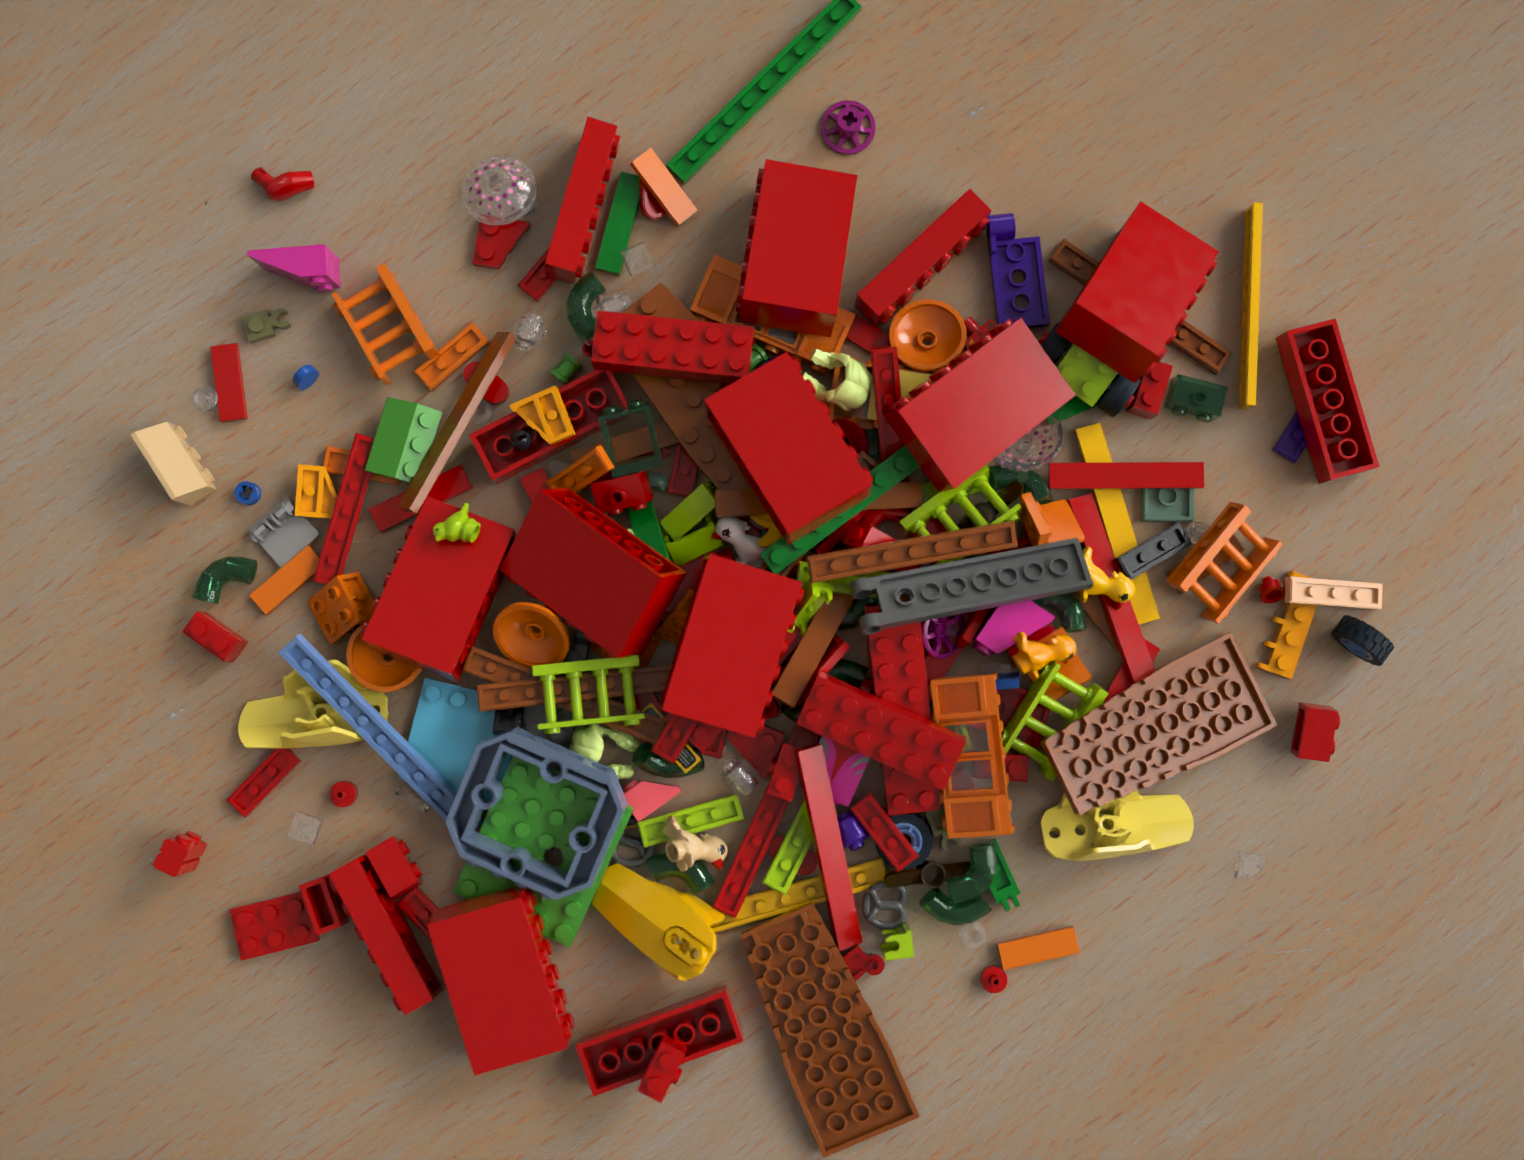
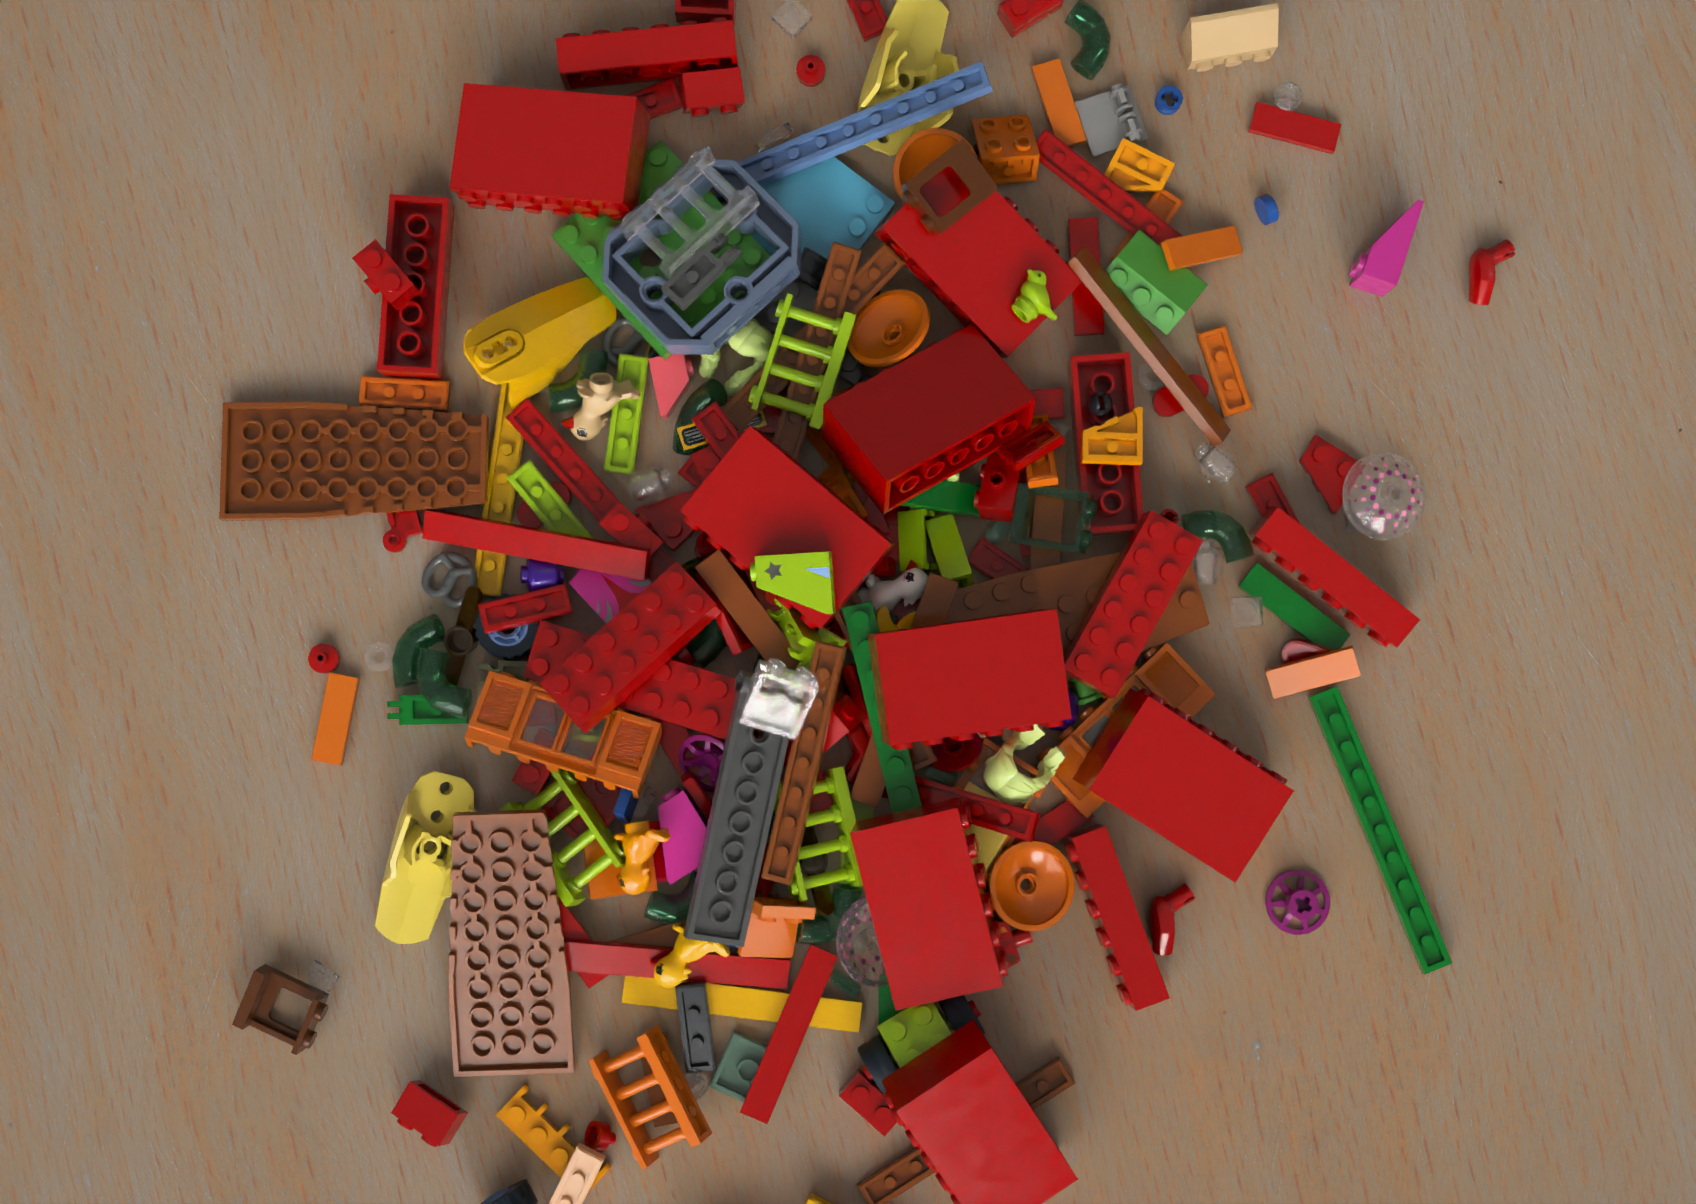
camera: 105 degrees right, 0 degrees up
(262, 325) = (1342, 186): olive plate -> none
(359, 414) = (1201, 248): none -> orange tile
(374, 622) = (970, 172): none -> reddish brown window
(409, 324) = (1277, 342): orange fence -> none
(528, 820) = (723, 221): none -> clear fence
(551, 807) = (700, 272): none -> dark grey hinge
(566, 368) = (1159, 485): bright green bush -> none
(579, 477) = (1033, 448): none -> red tile
(751, 1010) = (404, 393): none -> orange tile
(769, 616) = (798, 577): none -> lime slope
(872, 591) = (778, 698): none -> clear plate
(899, 944) = (402, 572): lime hinge -> none
(906, 224) = (1162, 918): none -> red arm
(1014, 255) = (1080, 1012): dark purple hinge -> none
(1066, 452) = (845, 983): none -> clear green tile
(1196, 398) = (839, 1148): clear green brick -> none
(1286, 907) = (261, 997): none -> reddish brown window

